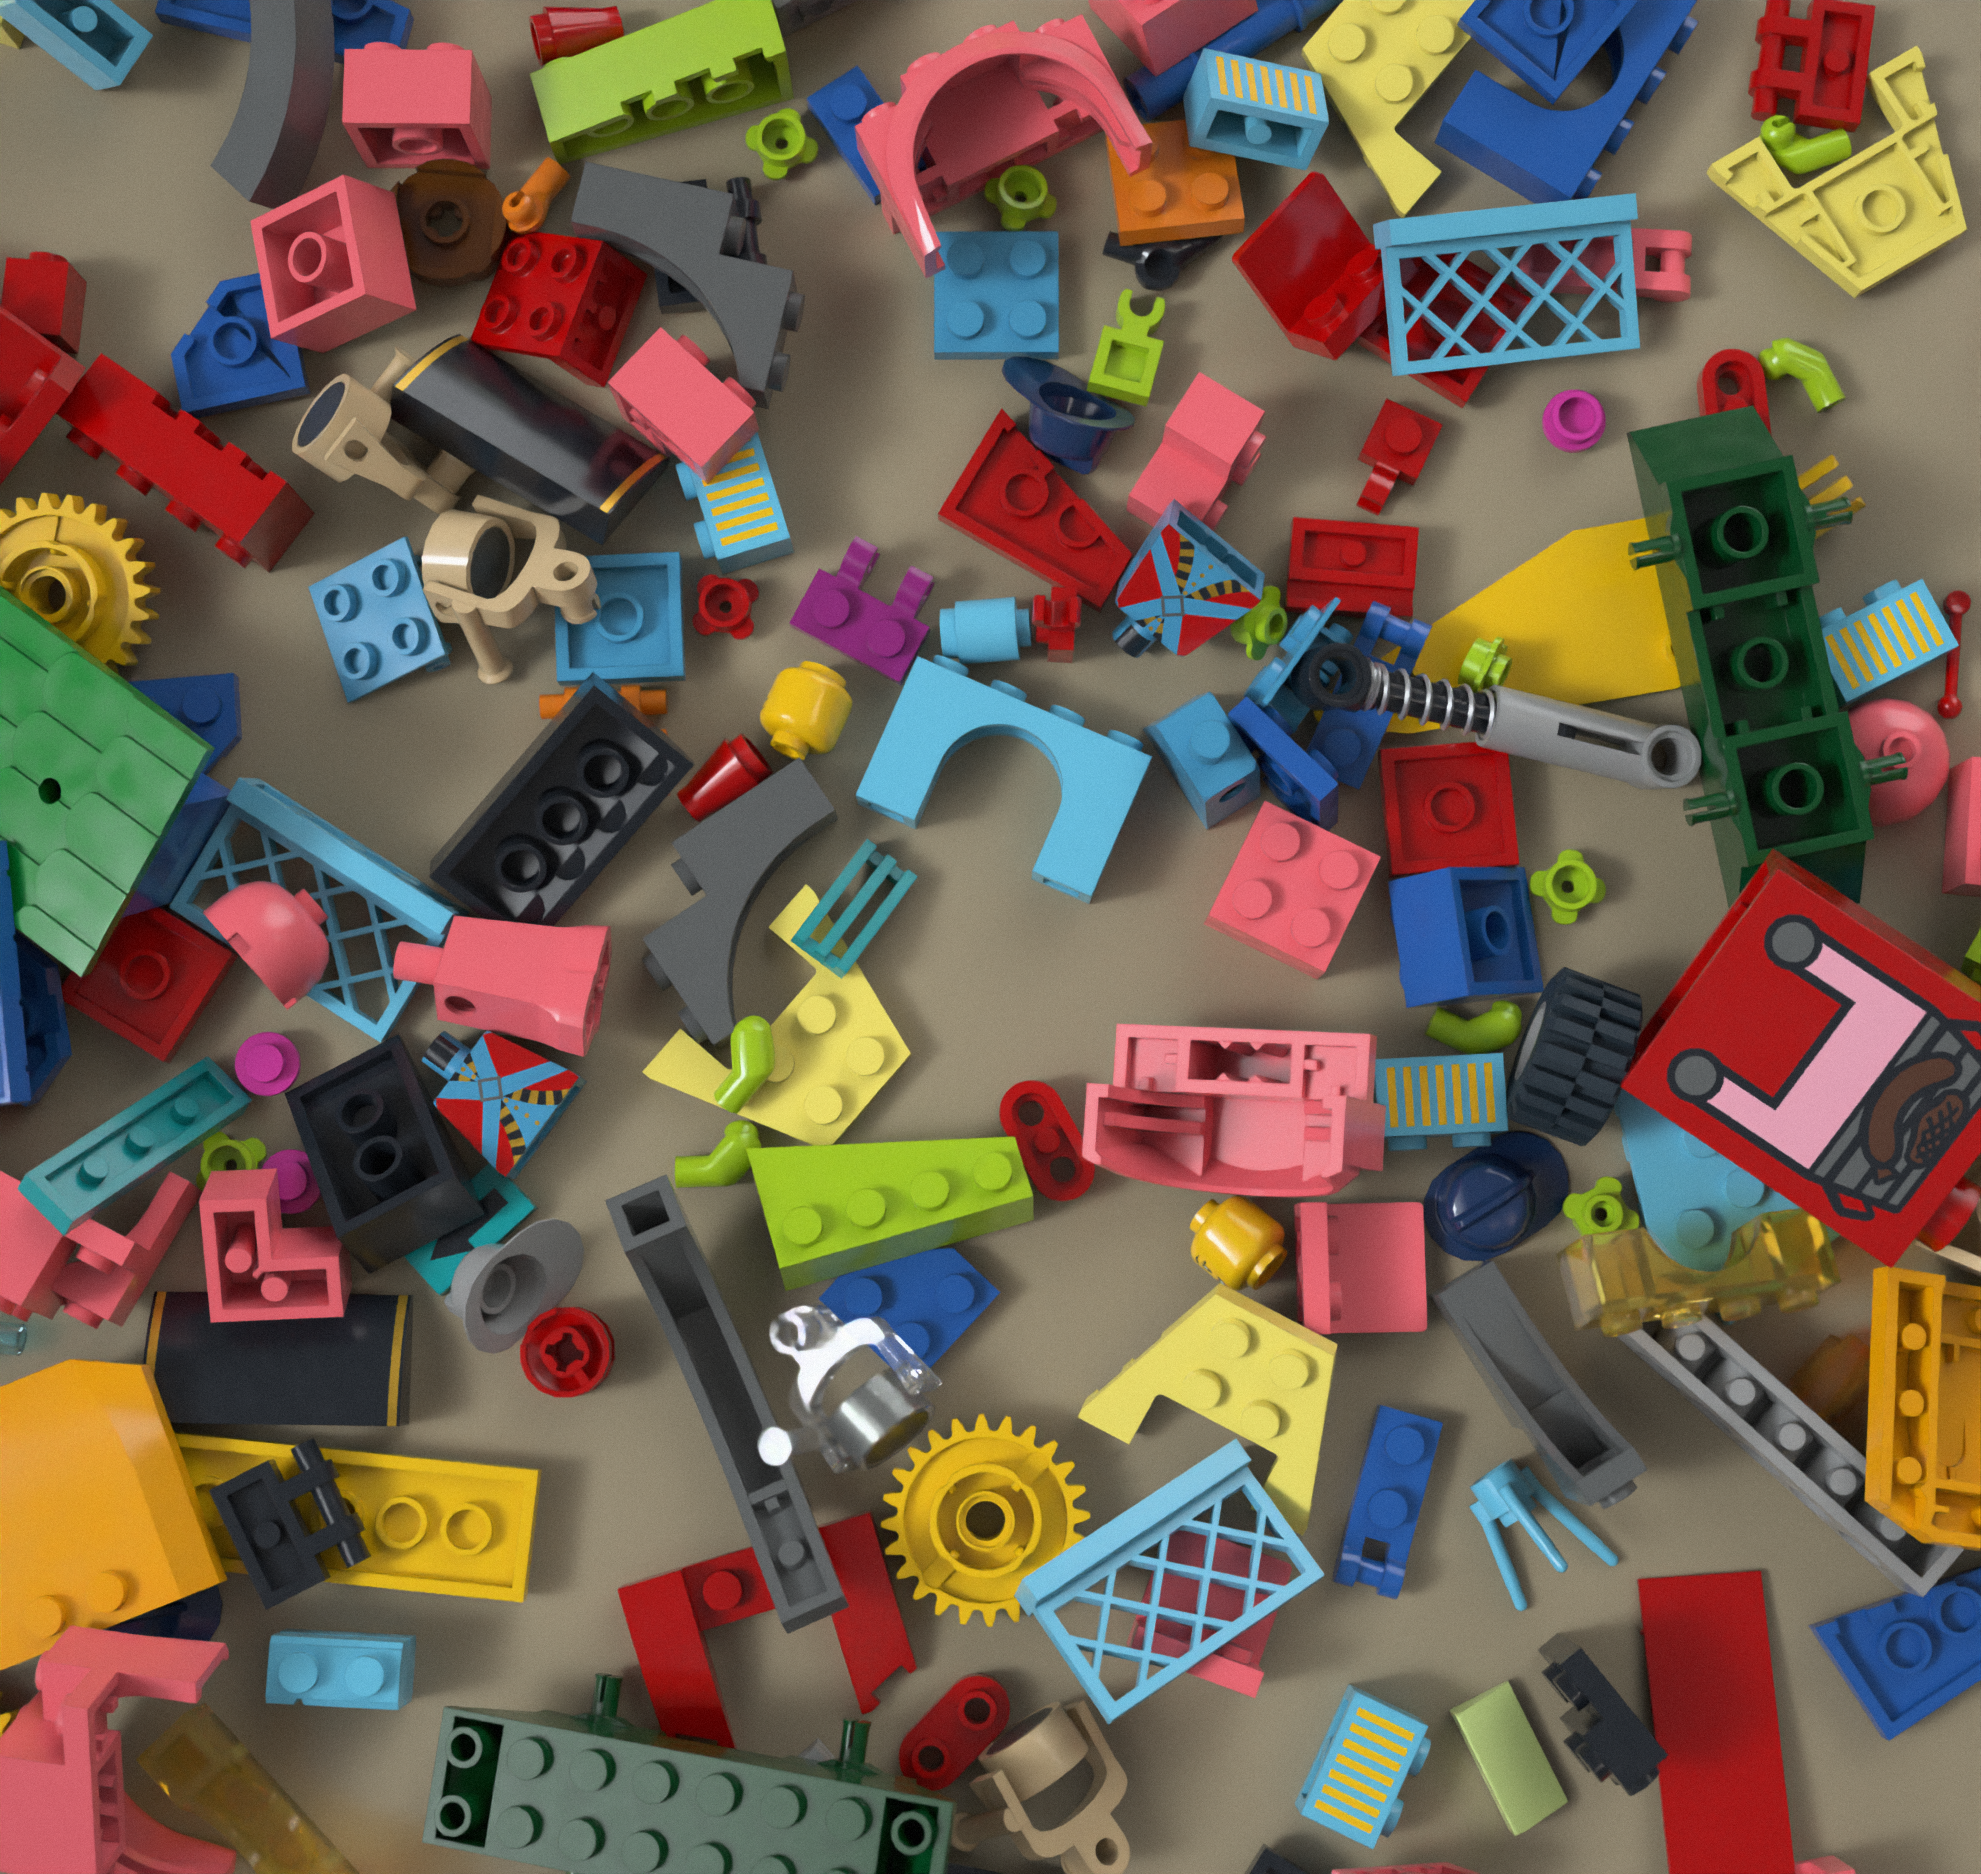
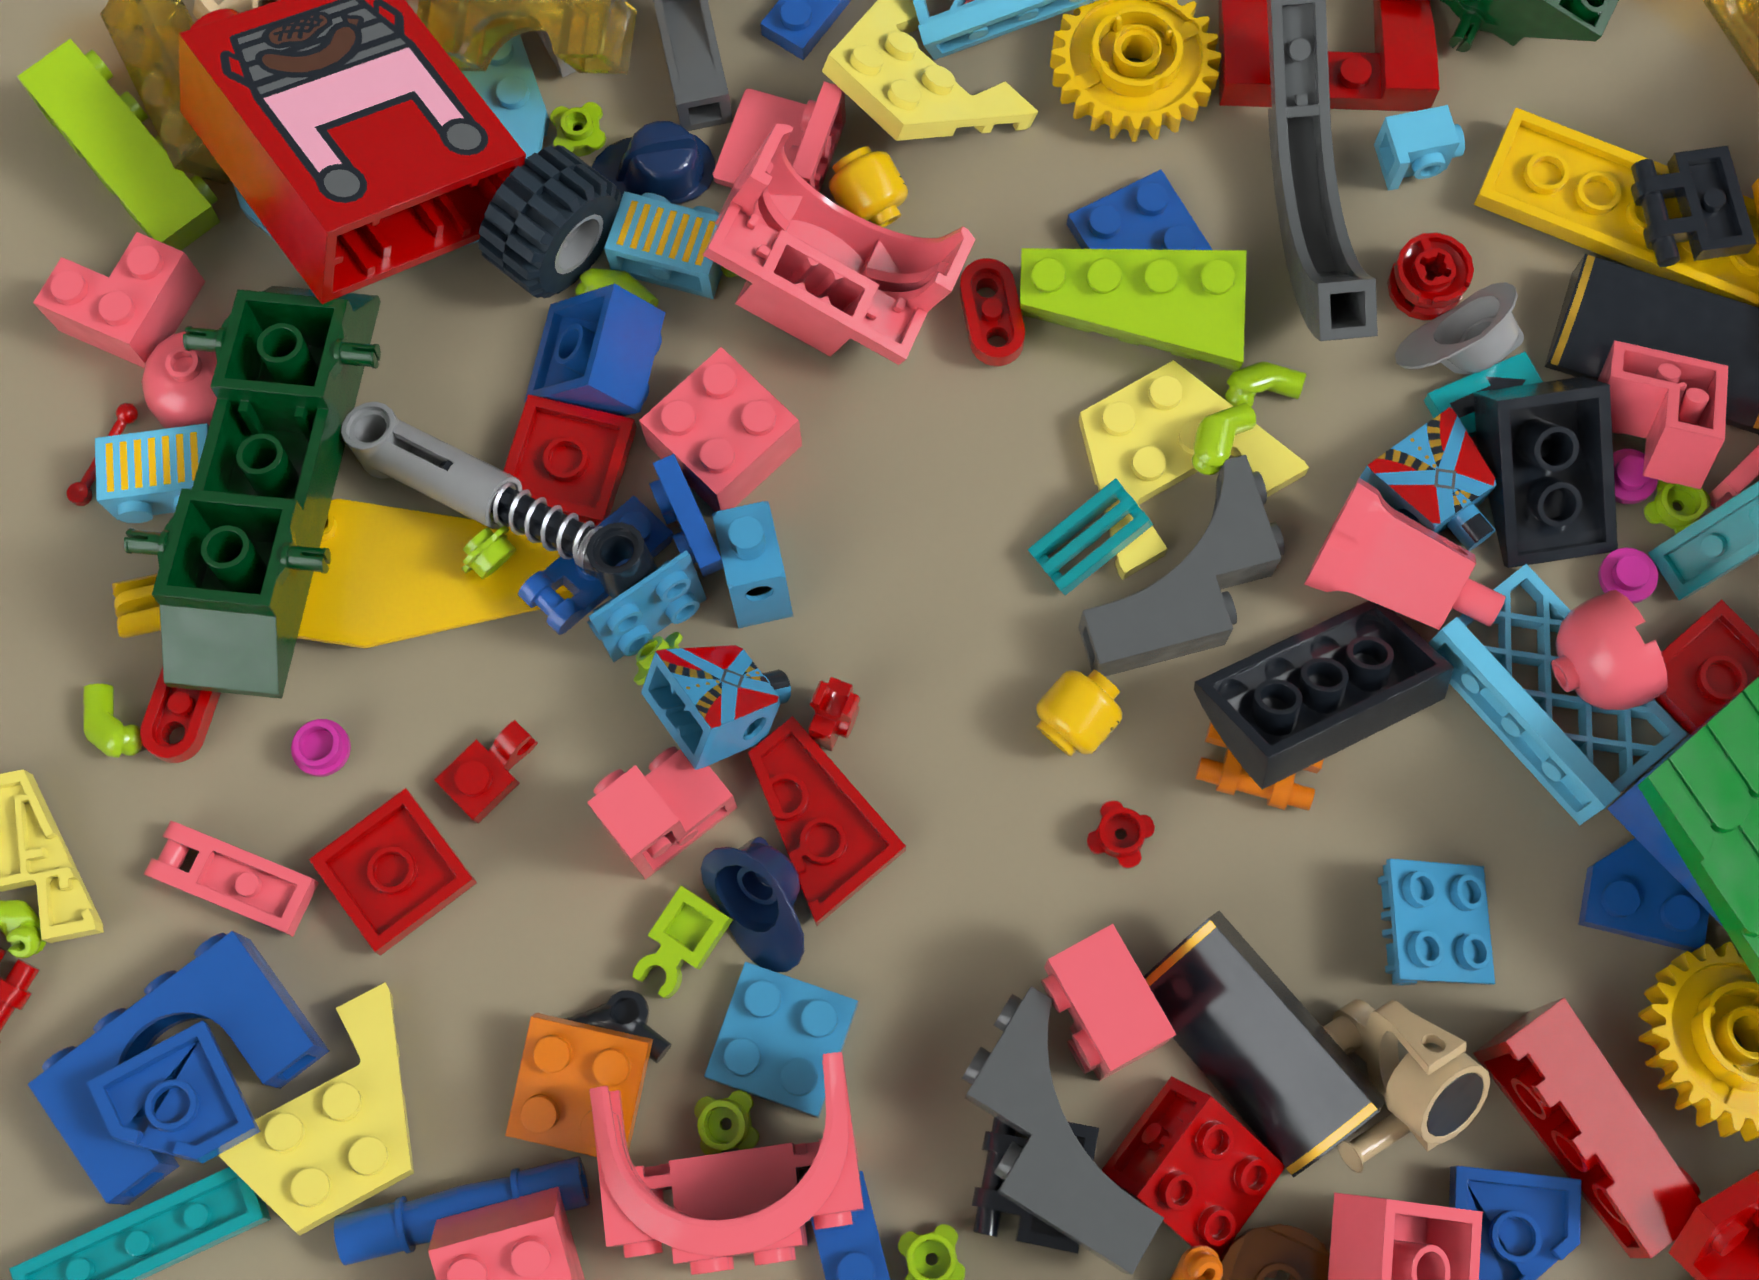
camera: 160 degrees left, 10 degrees down
(341, 1669) = (1672, 103): medium azure brick -> none
(471, 564) = (1343, 937): tan piece -> none
(621, 1514) = (1418, 144): none -> medium azure brick
(635, 630) = (1220, 852): dark azure plate -> none
(724, 777) = (1163, 683): red cone -> none
(739, 511) = (1080, 901): medium azure brick -> none
(861, 625) = (1005, 778): magenta plate -> none
(872, 1420) = (1201, 143): clear piece -> none
(947, 710) = (955, 672): medium azure arch -> none
(985, 630) = (899, 732): medium azure brick -> none
(1255, 109) = (479, 1117): medium azure brick -> none
(1316, 270) = (479, 942): red bracket -> none
(1351, 563) = (564, 681): red plate -> none
(1505, 228) = (308, 919): medium azure fence -> none
(1569, 868) = (494, 358): lime plate -> none

